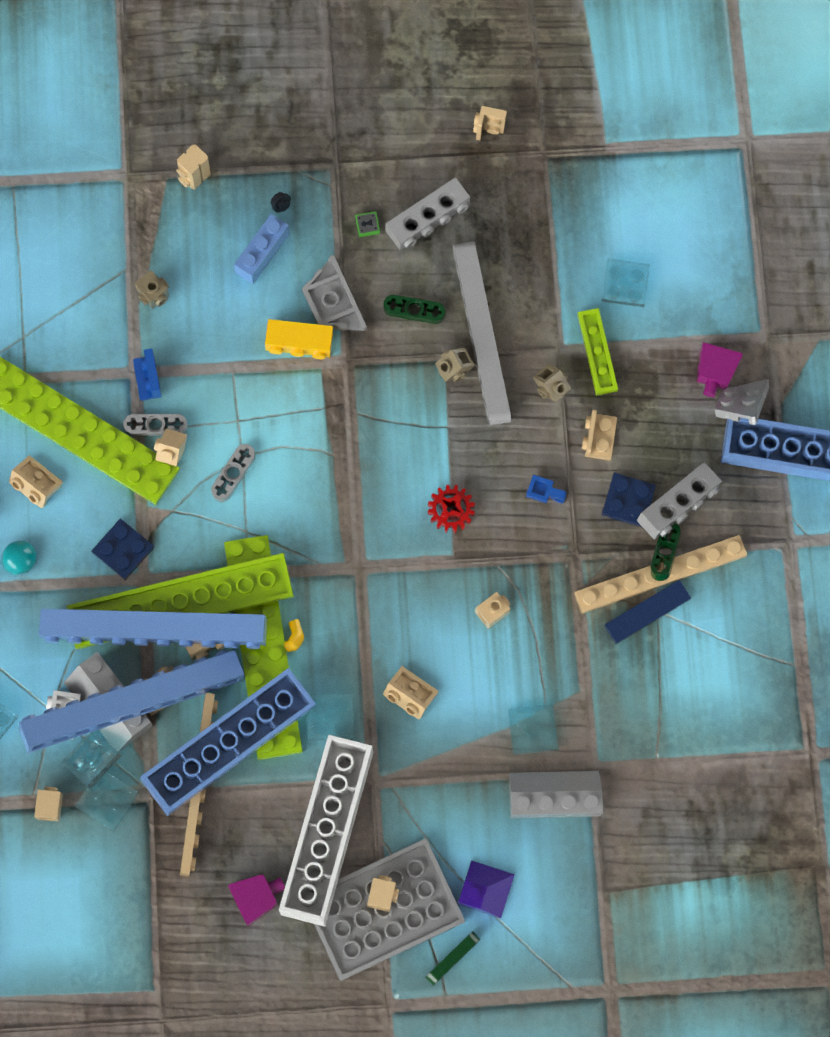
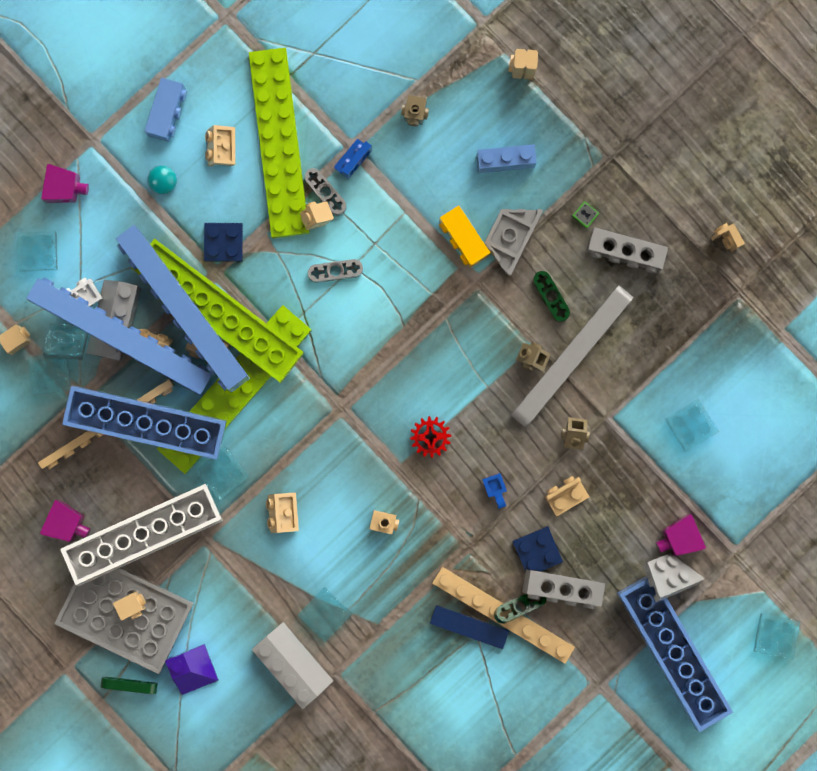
camera: 55 degrees right, 10 degrees up
(280, 202) = (551, 143): black plate -> none
(296, 638) = (257, 407): yellow arm -> none
(597, 351) = (625, 445): lime plate -> none

